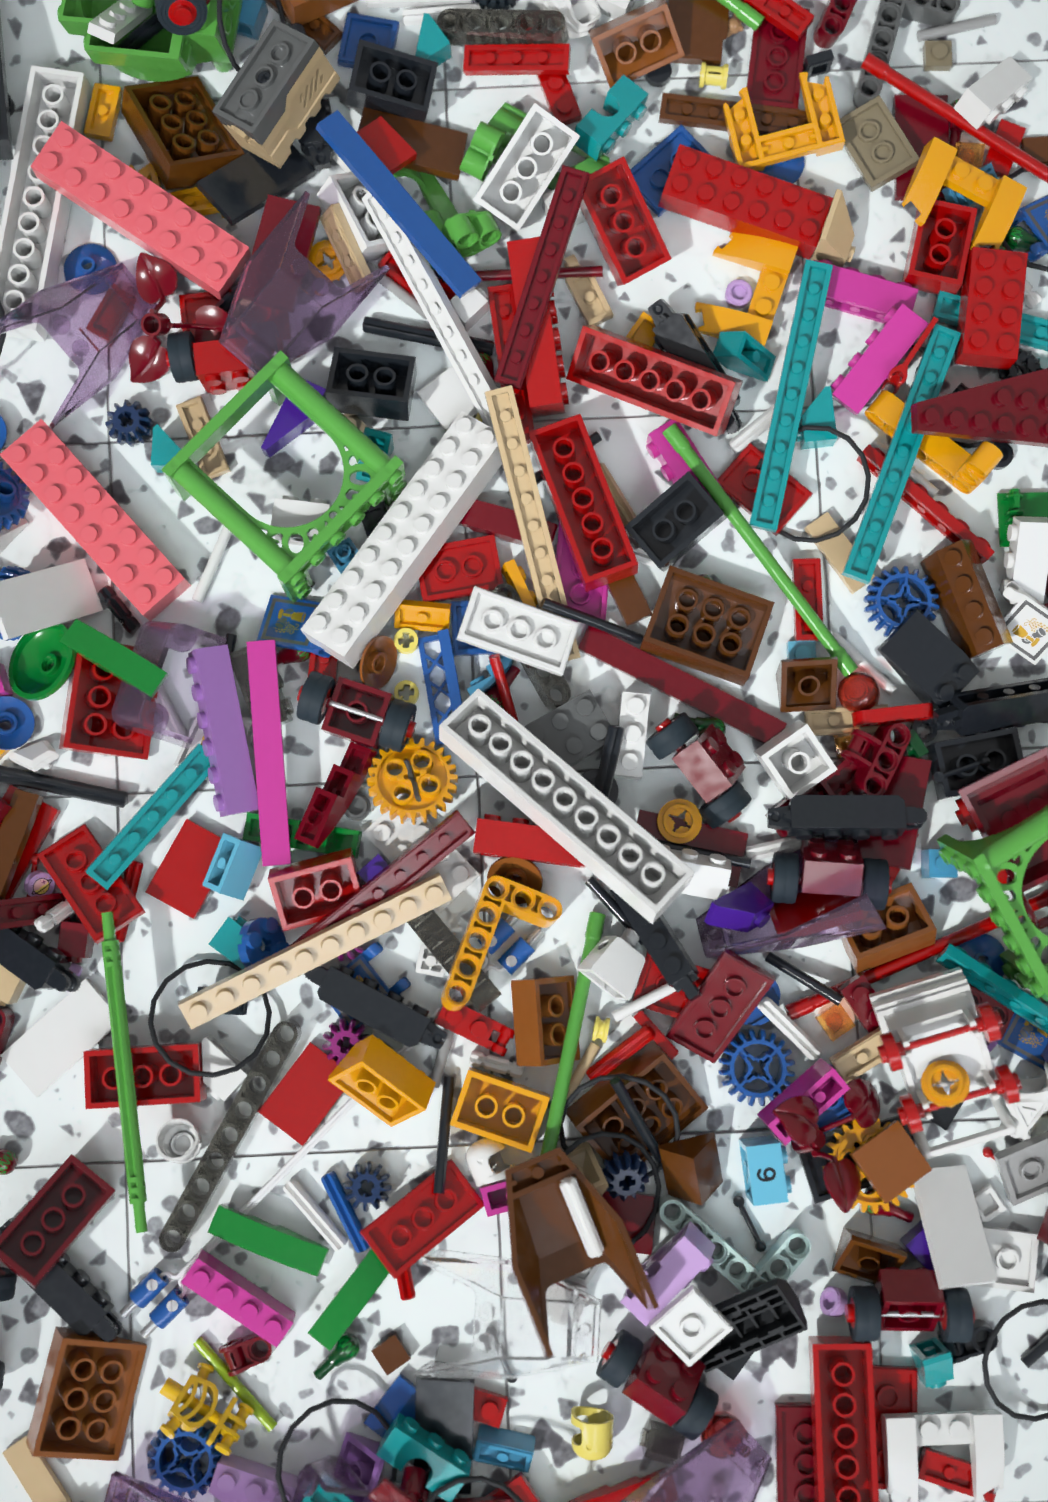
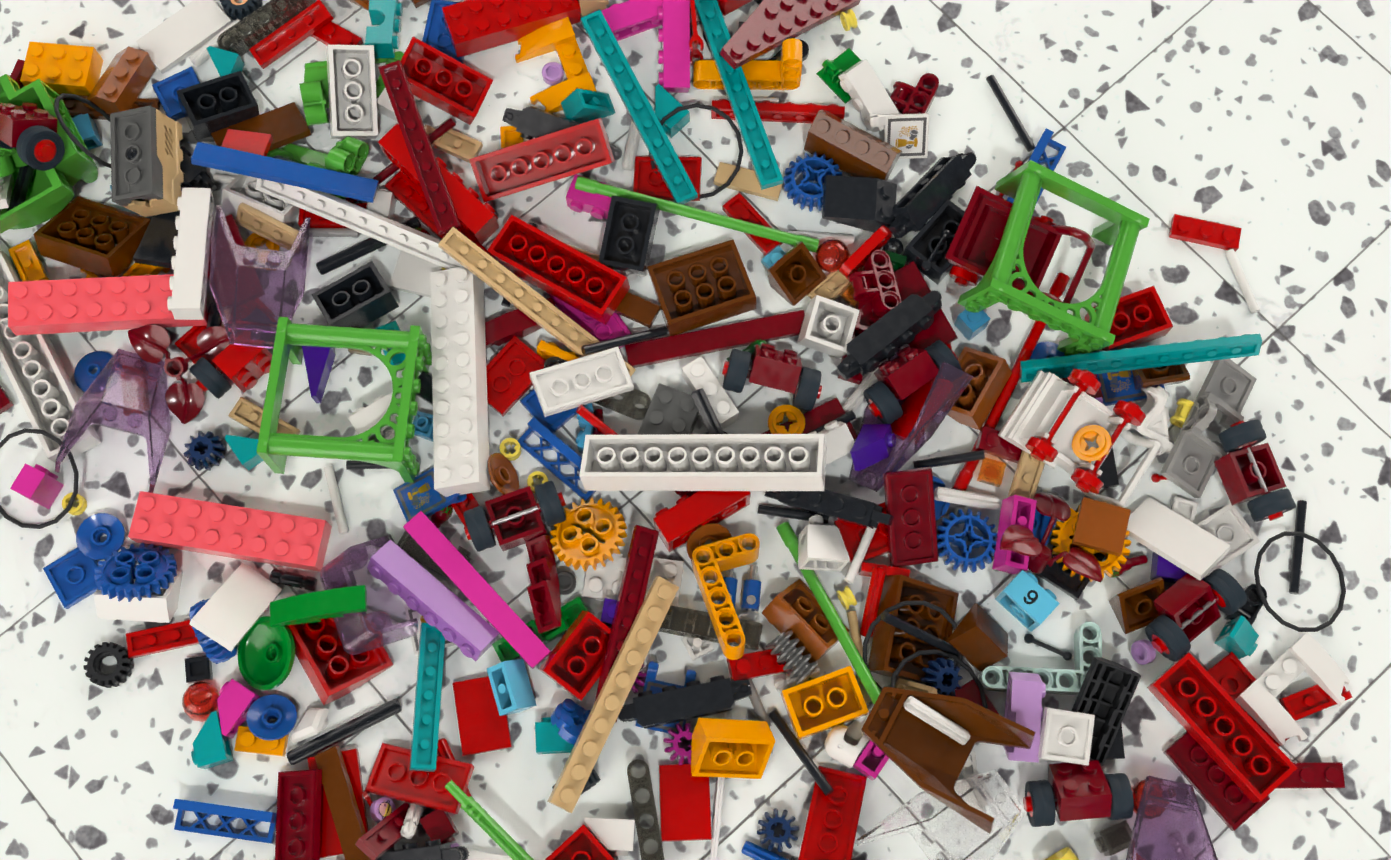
camera: 40 degrees left, 10 degrees down
(202, 1073) = (586, 848): black piece -> none
(251, 221) = (192, 254): none -> white brick
(422, 615) = (508, 423): light orange plate -> none
(505, 1045) = (792, 656): none -> dark grey piece

